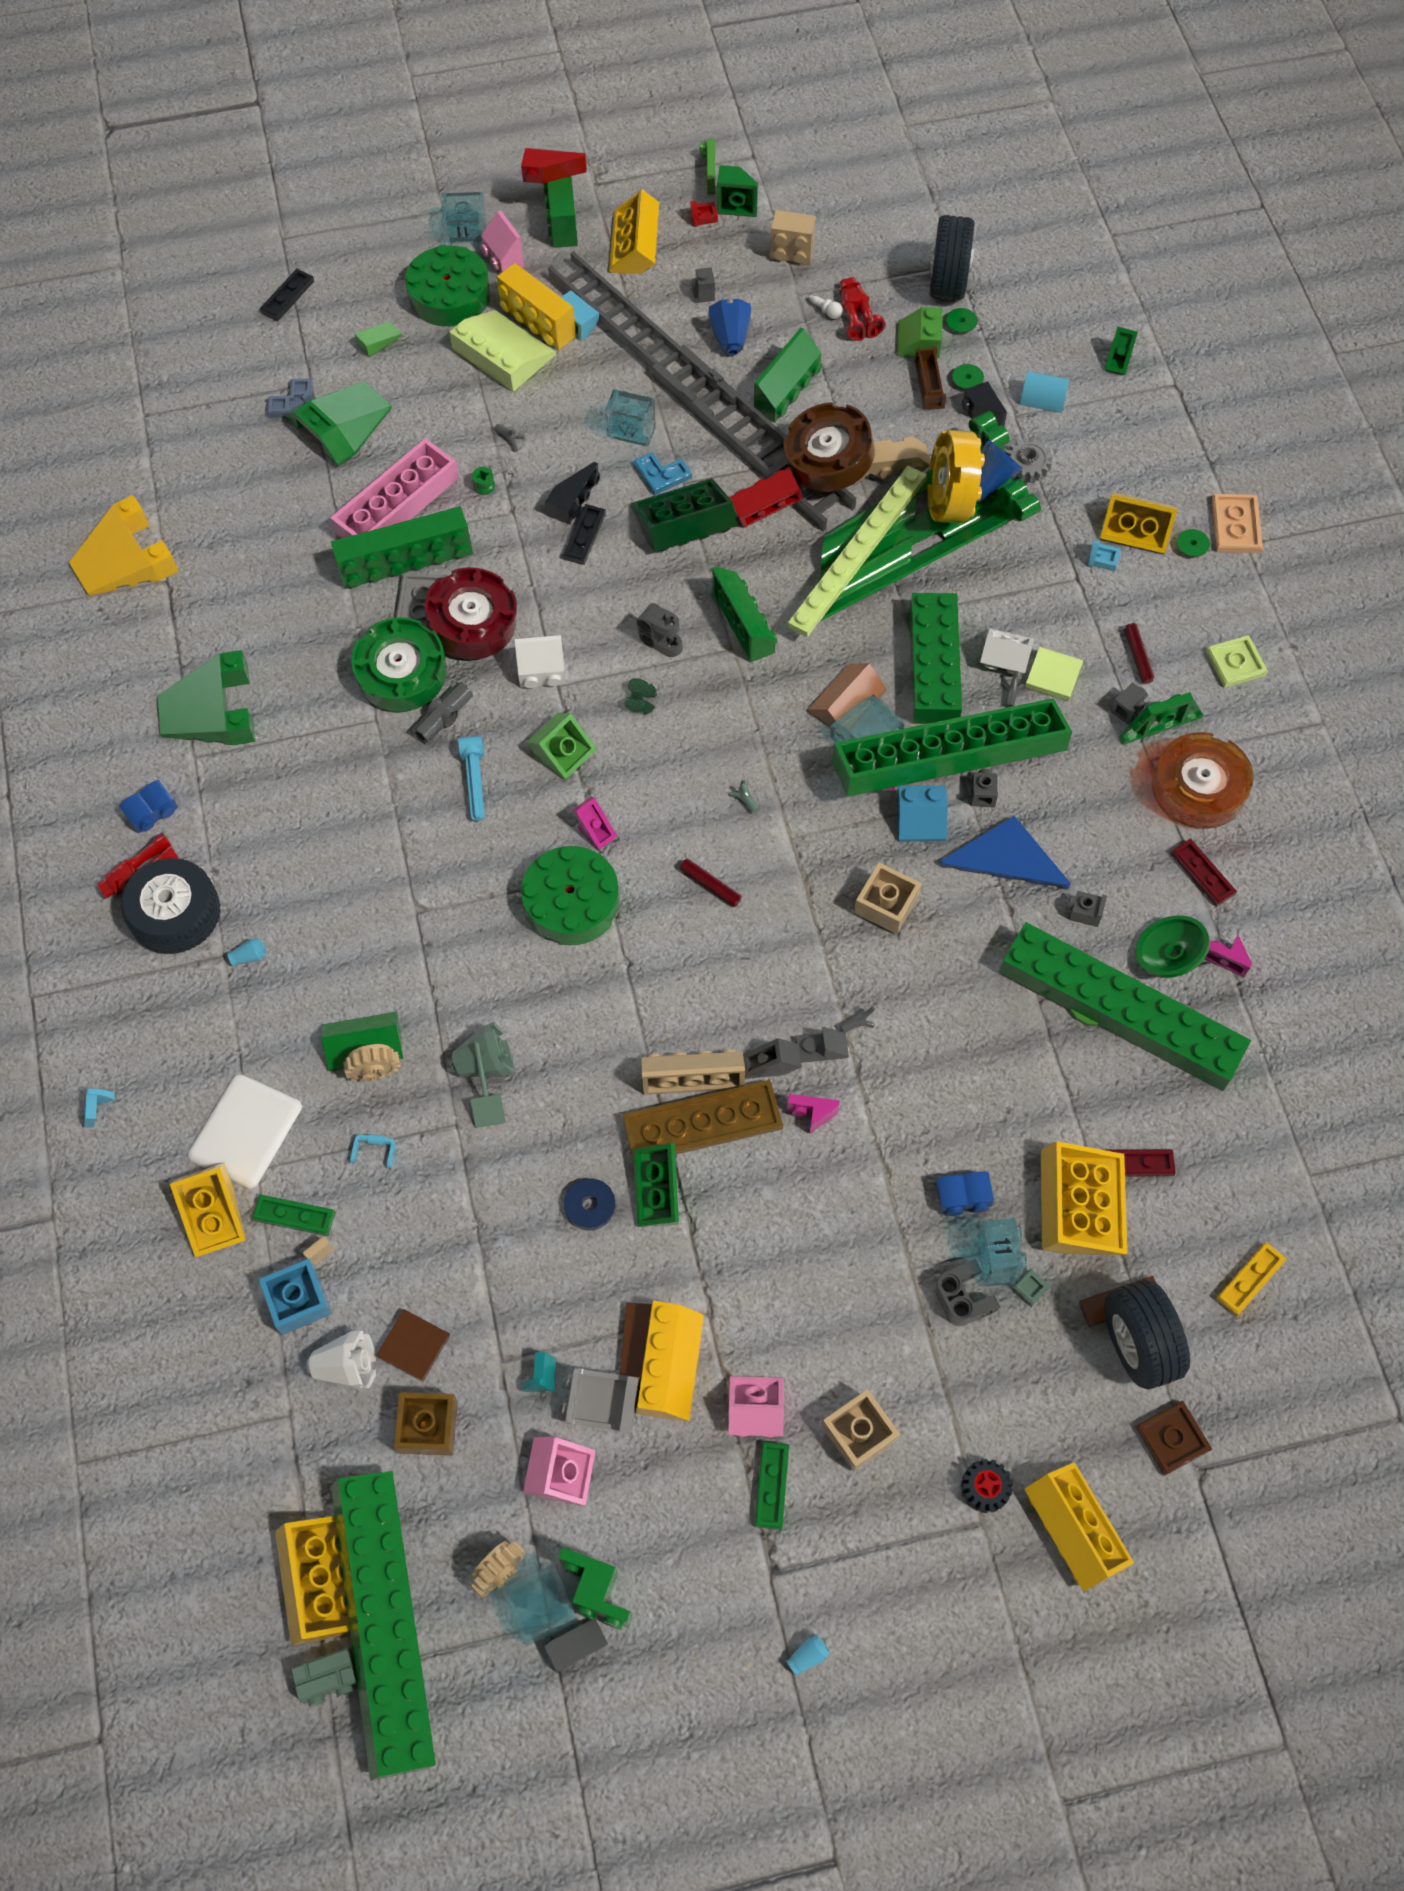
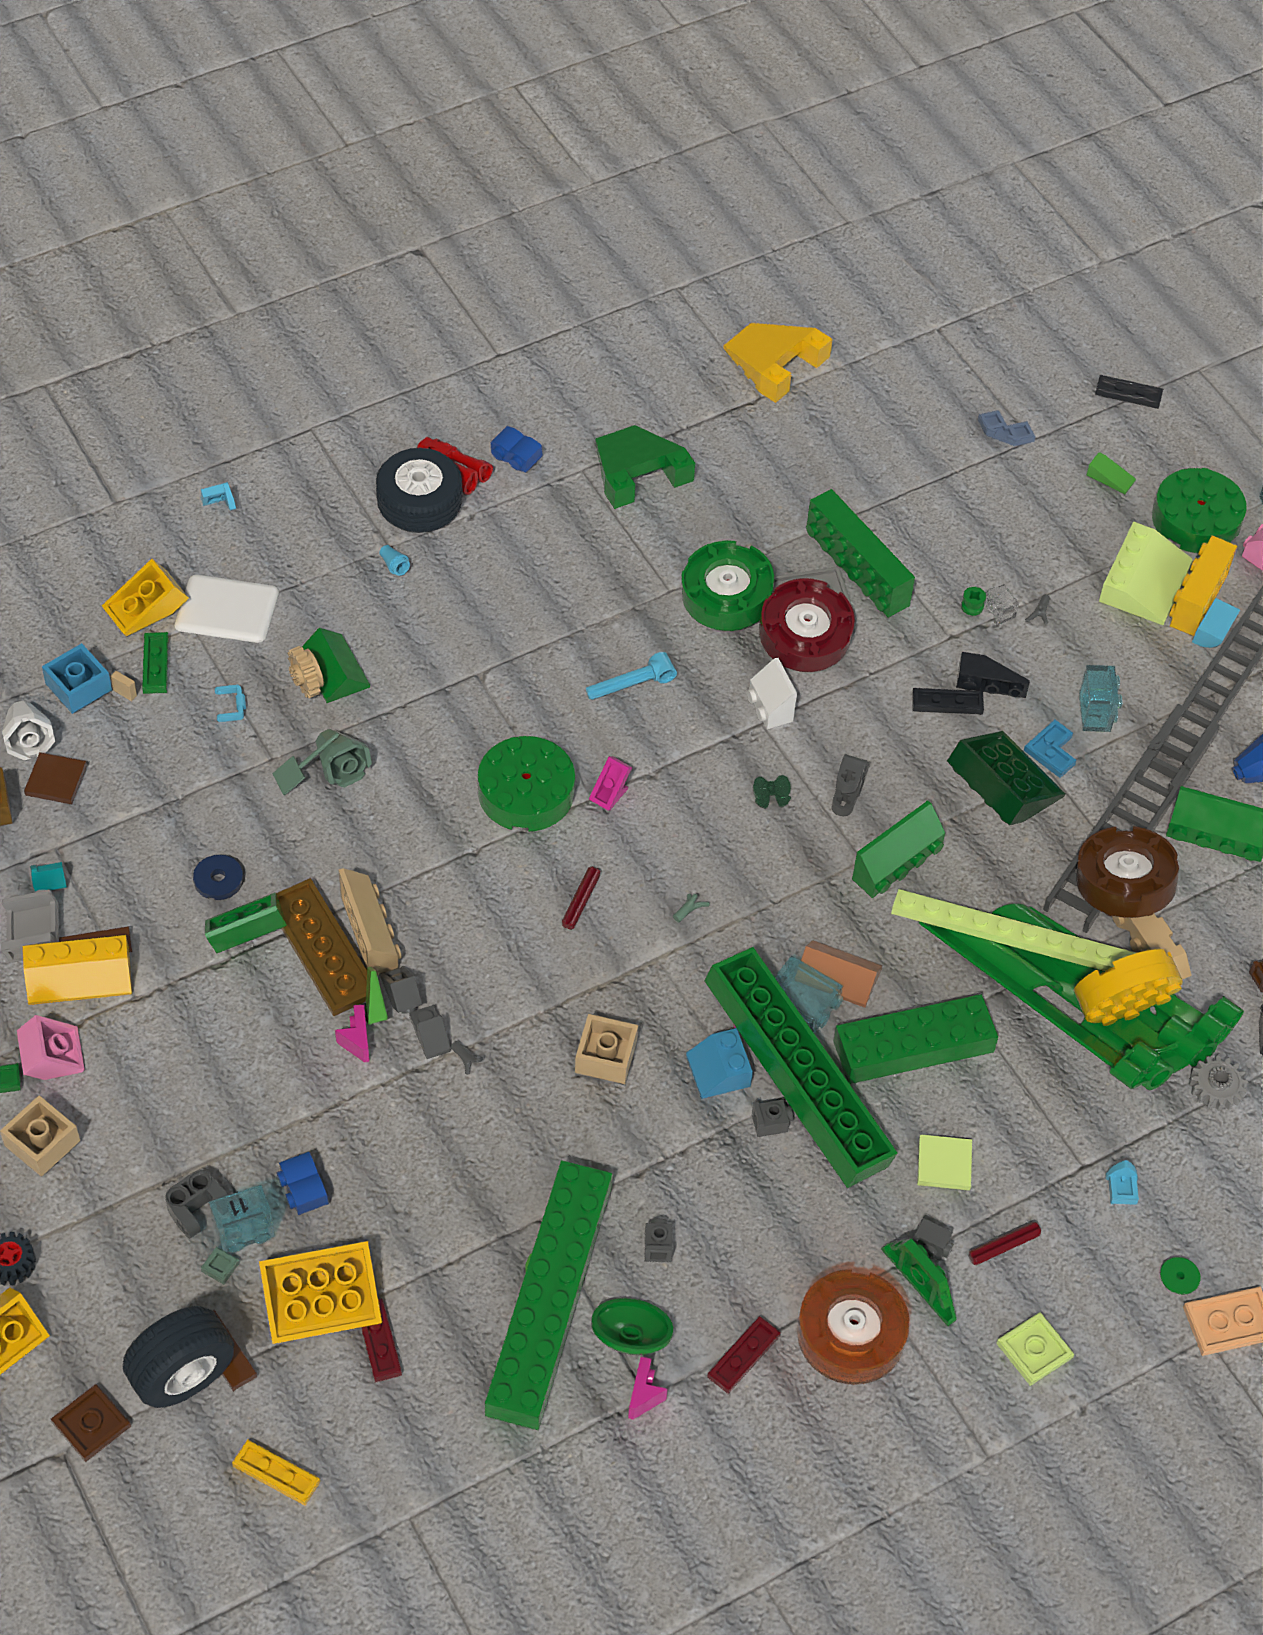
camera: 70 degrees right, 10 degrees down
(342, 419) = (995, 471): green wedge -> none
(398, 492) = (923, 534): bright pink brick -> none
(442, 712) = (692, 636): dark grey piece -> none
(561, 744) = (689, 738): bright green slope -> none
(766, 497) = (1049, 838): red brick -> none
(783, 1082) = (375, 1008): none -> bright green slope
(996, 470) = (1166, 1030): blue cone -> none
(1006, 651) = (953, 1106): white slope -> none
(1008, 853) = (701, 1157): blue tile -> none
(1012, 690) = (906, 1124): dark grey bar -> none
(1138, 522) = (1182, 1210): yellow slope -> none

